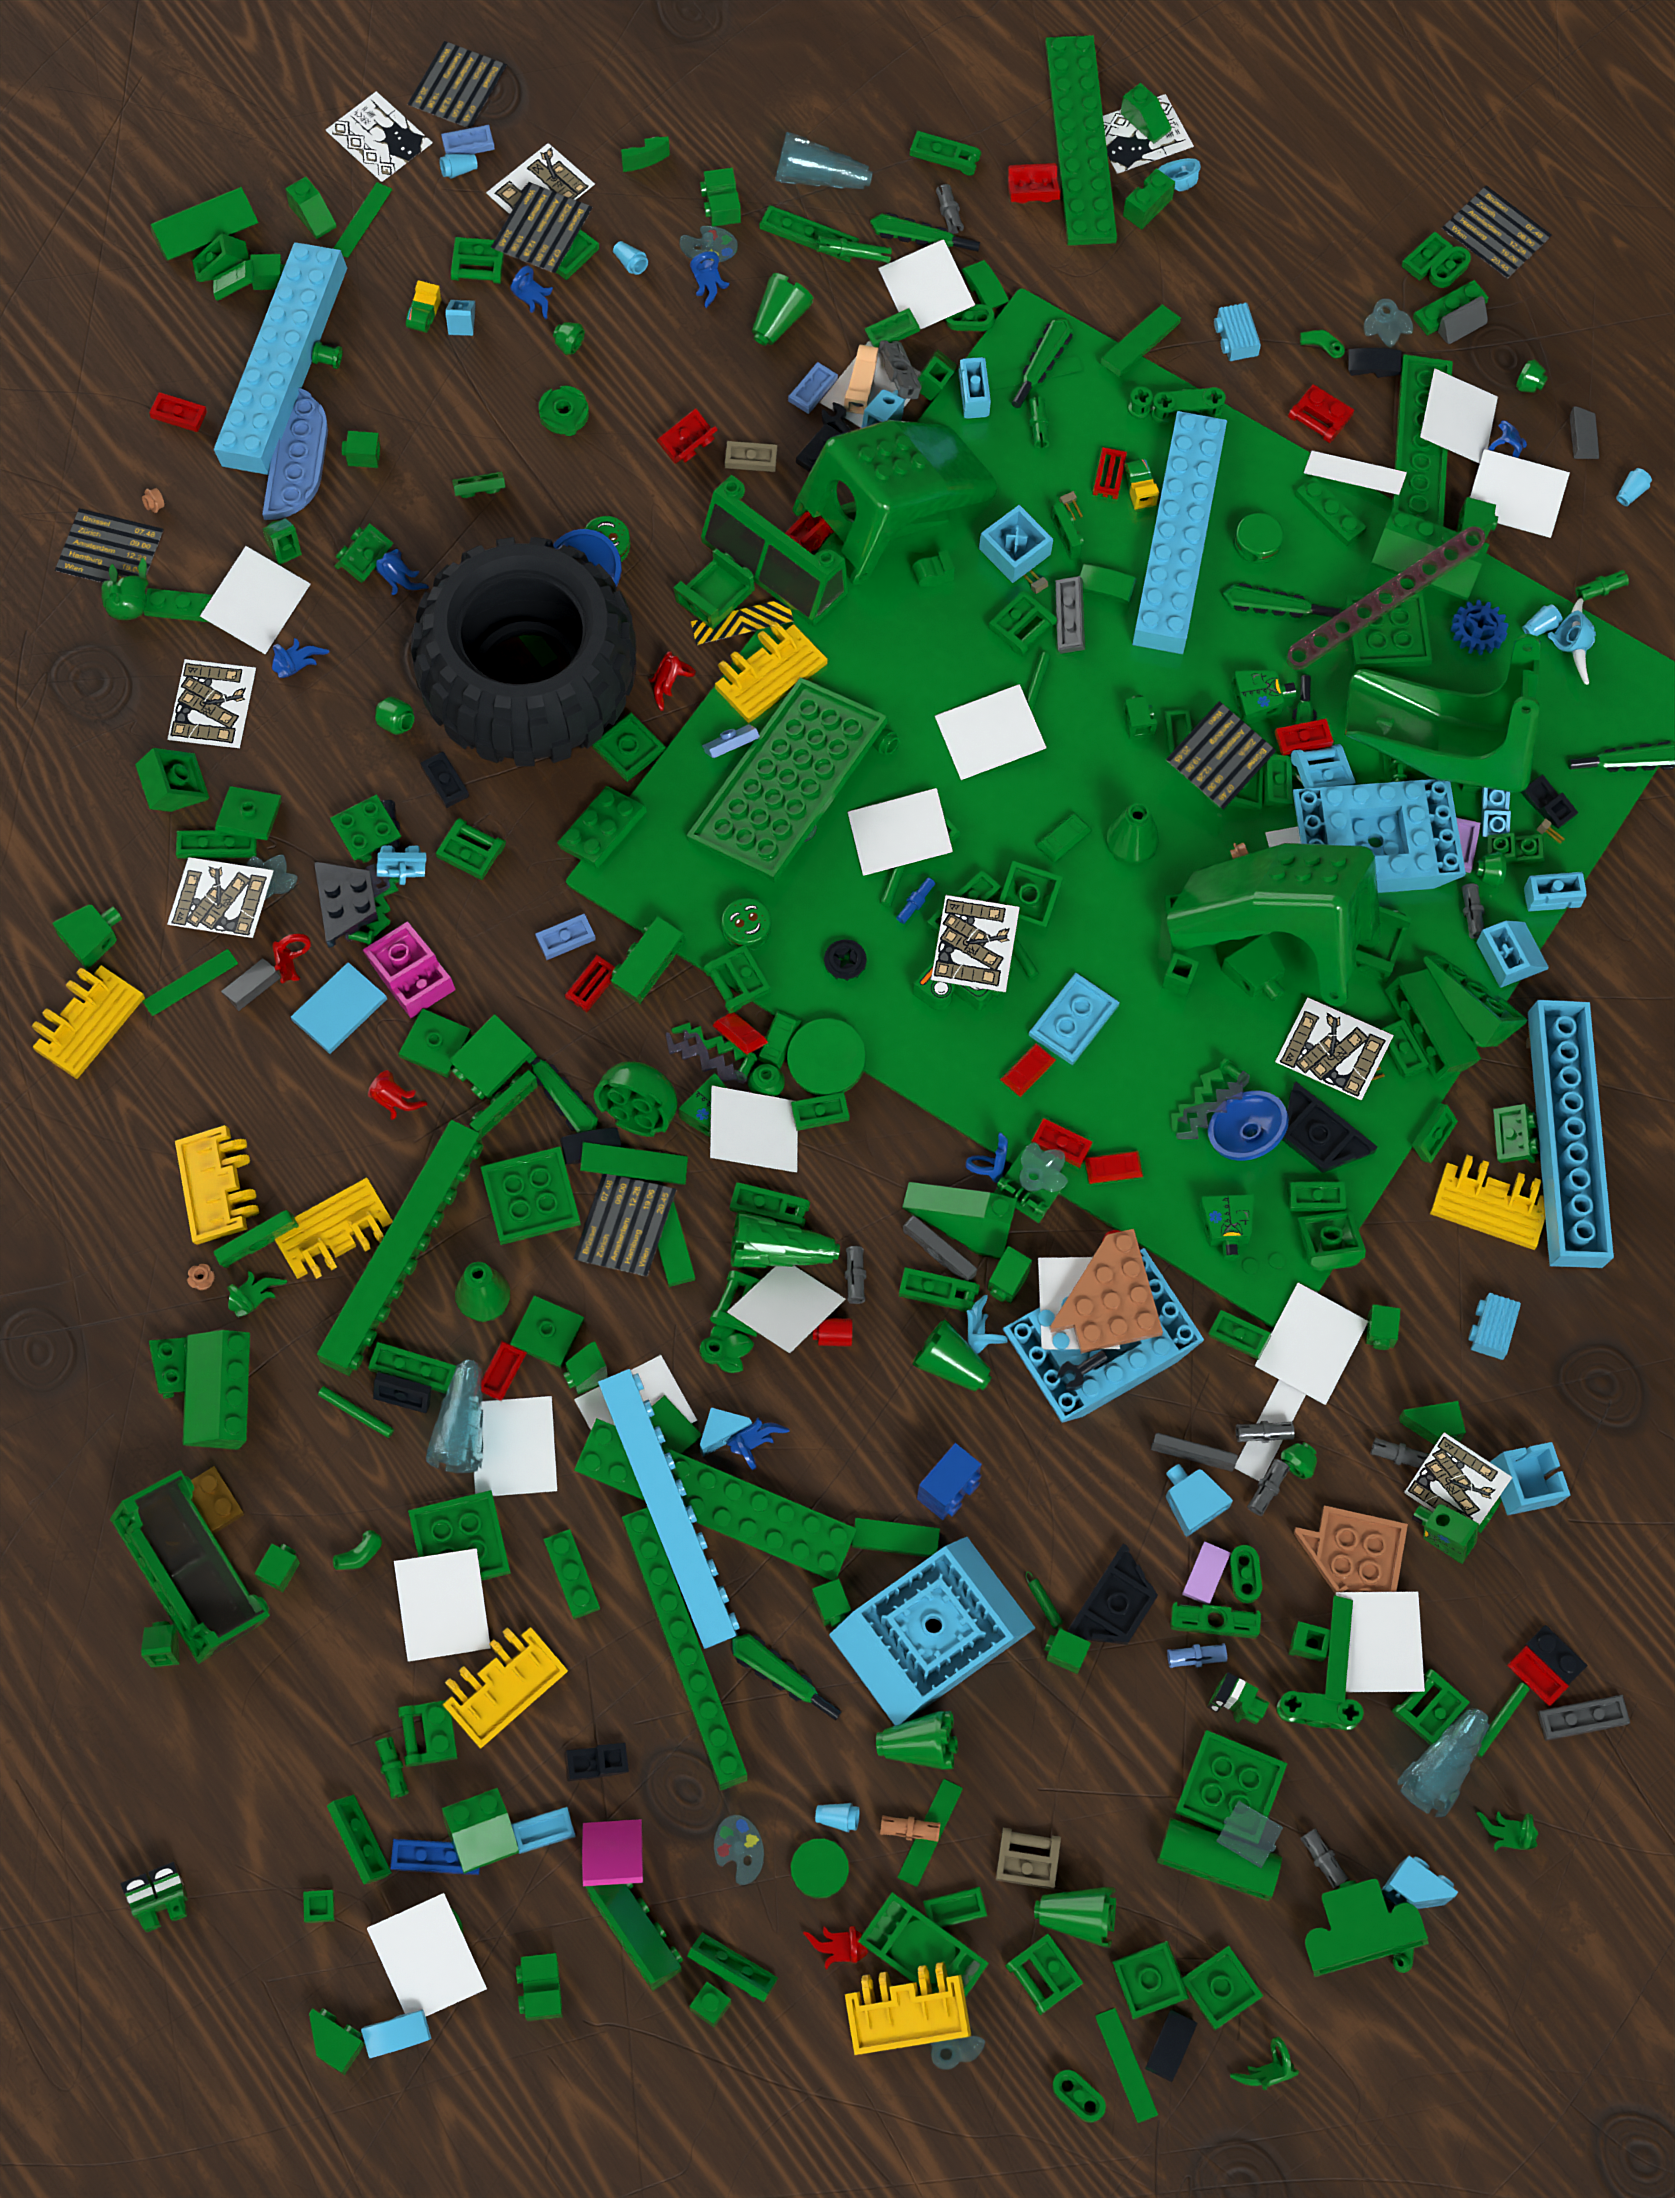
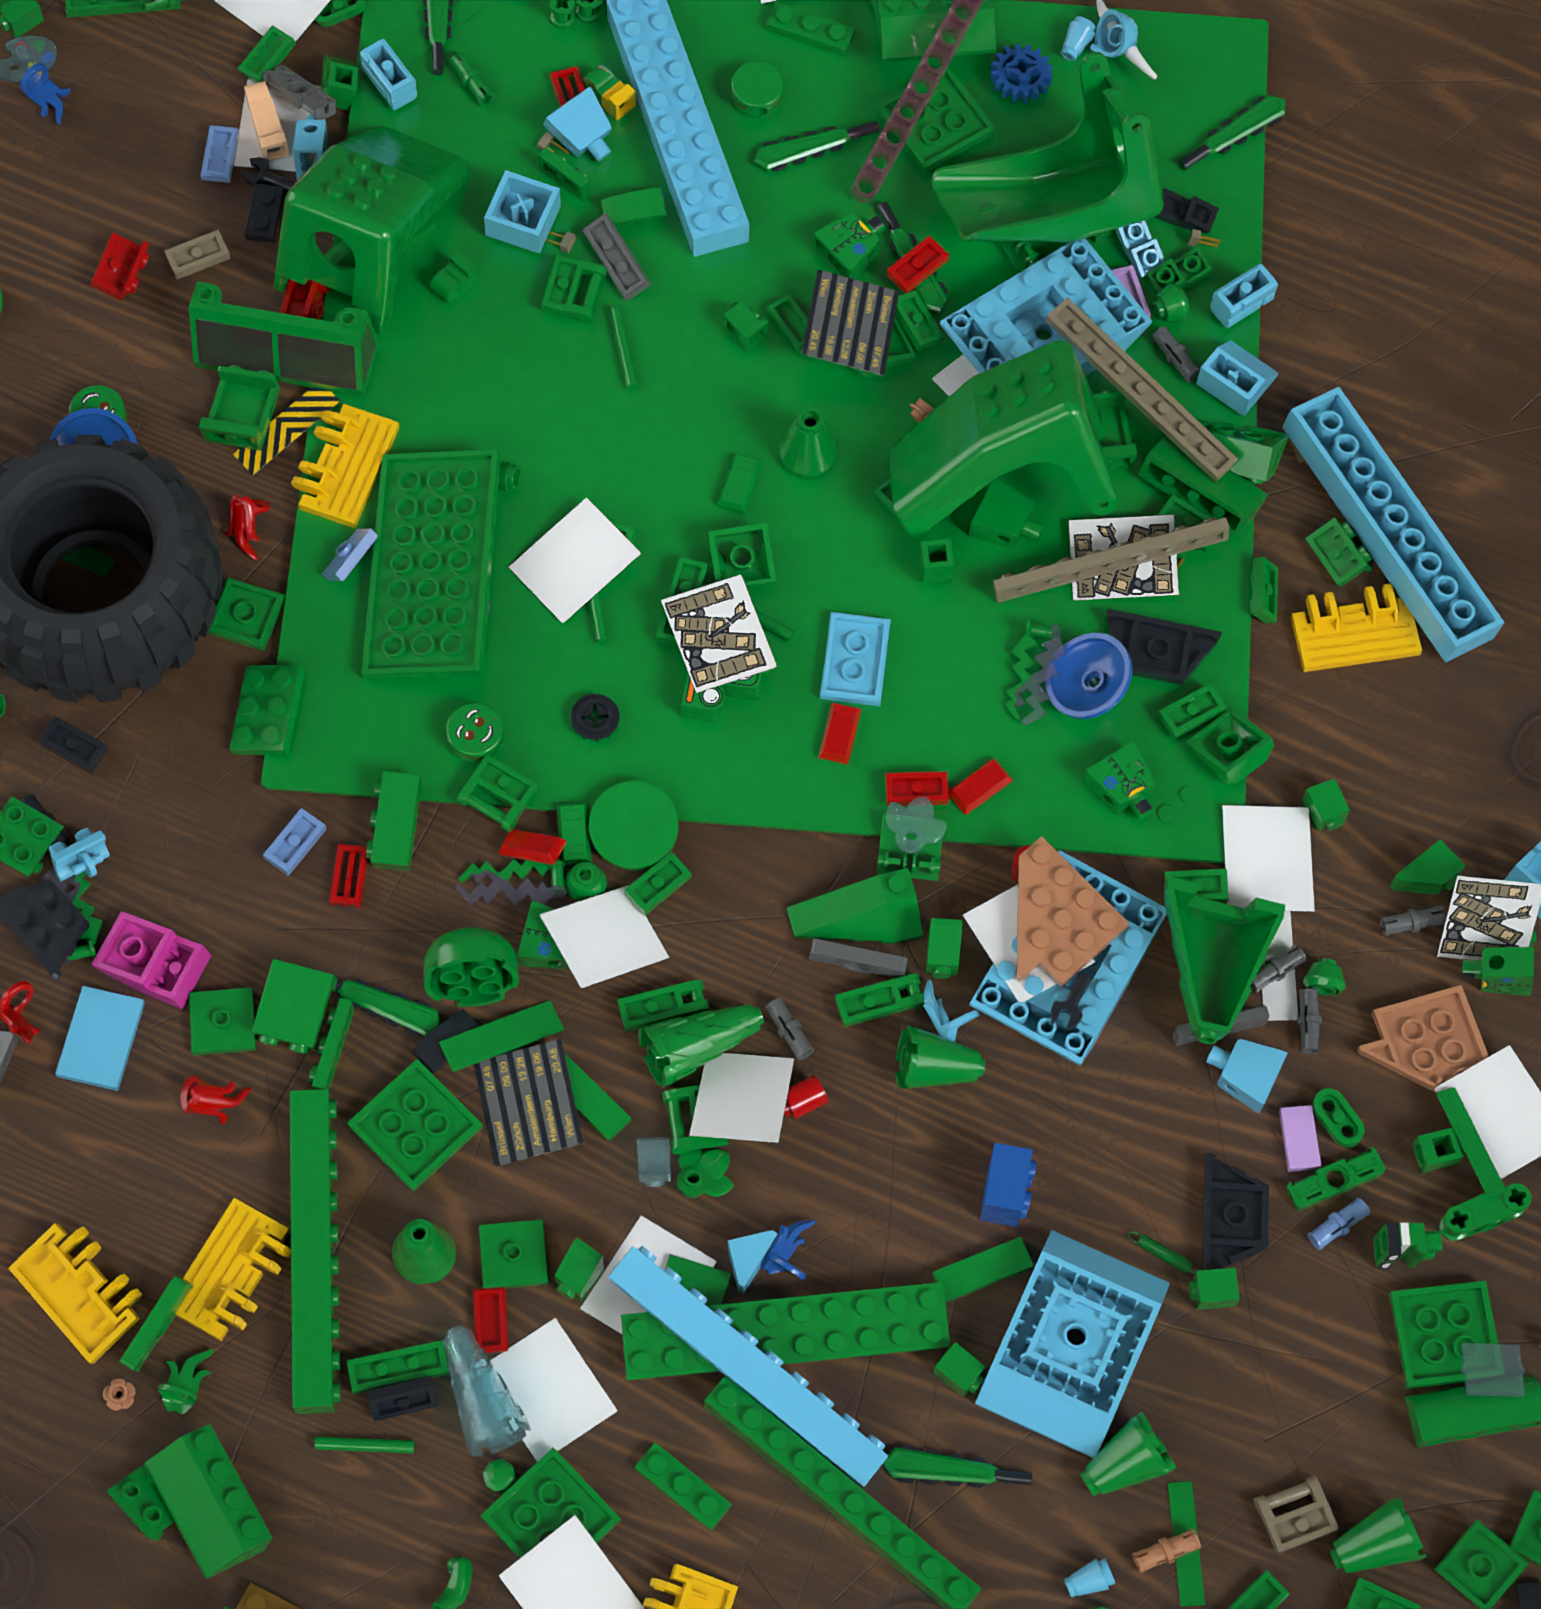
camera: 30 degrees left, 0 degrees up
(440, 1489) = (499, 1476): none -> green tile
(467, 855) = (142, 811): green plate -> none
(692, 1318) = (654, 1161): none -> clear light blue bracket
(779, 309) = (140, 88): green cone -> none
(915, 900) = (630, 621): blue bar -> none
(990, 732) = (605, 414): white sticker -> none
(997, 1171) = (866, 842): blue piece -> none
(1101, 499) = (581, 125): none -> medium azure torso
(1219, 1392) = (1217, 953): none -> green cone
(1324, 774) = (958, 292): medium azure plate -> none
(1328, 1046) = (1102, 562): none -> dark tan plate
(1422, 923) = (1141, 389): none -> dark tan plate
(1494, 1326) = (1429, 748): medium azure brick -> none

